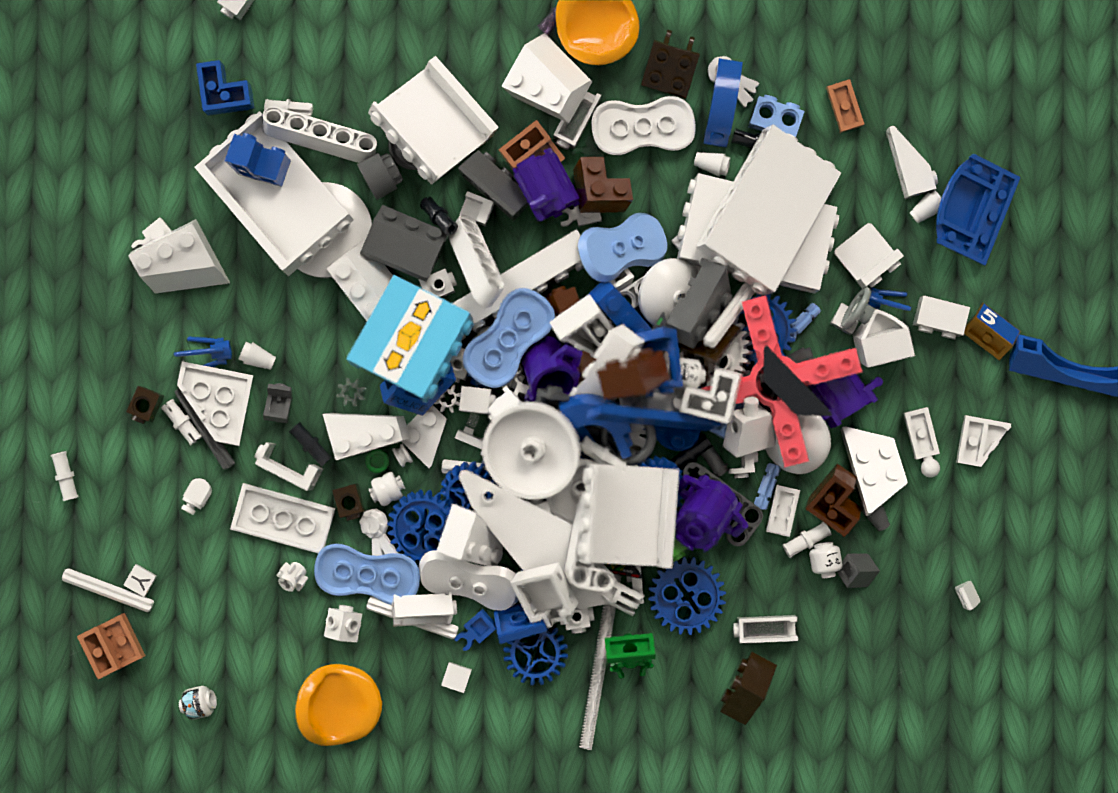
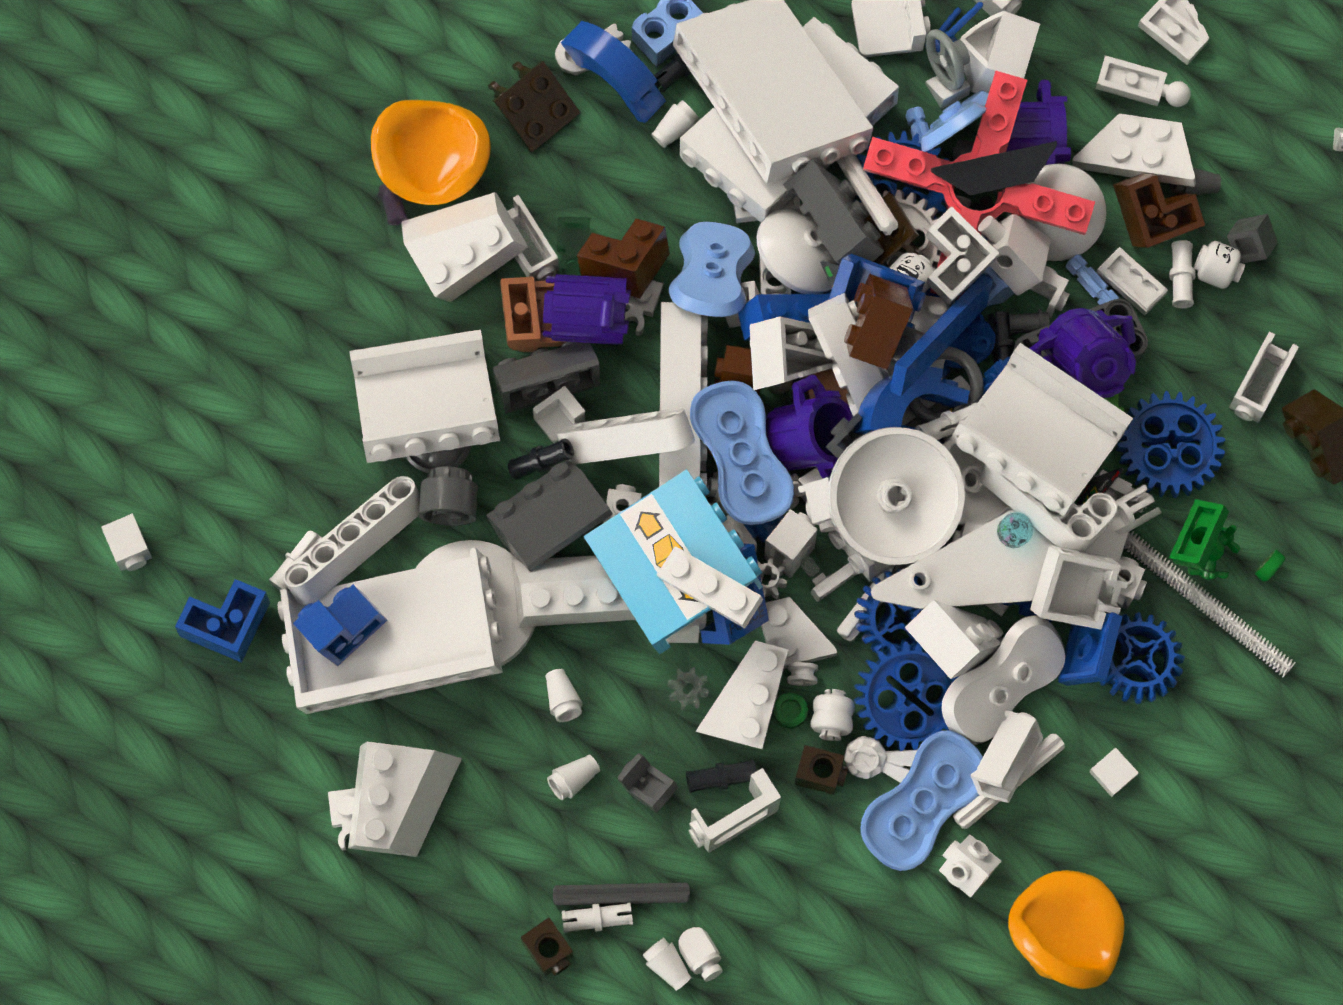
camera: 65 degrees left, 15 degrees down
(178, 479) = (667, 963): none -> white cone
(217, 398) = (596, 854): white plate -> none
(219, 350) = (535, 818): blue plant -> none
(282, 518) = (792, 866): white tile -> none
(292, 576) = (873, 893): white gear -> none
(301, 320) = (562, 696): none -> white cone
(399, 373) = (710, 587): none -> white plate
(478, 628) = (1069, 706): blue plate -> none
(559, 535) = (1015, 530): none -> clear light blue tile
(644, 700) = (1270, 565): none -> green tile
(661, 124) = (575, 188): white plate -> none
(812, 340) = (954, 119): none -> light blue plate

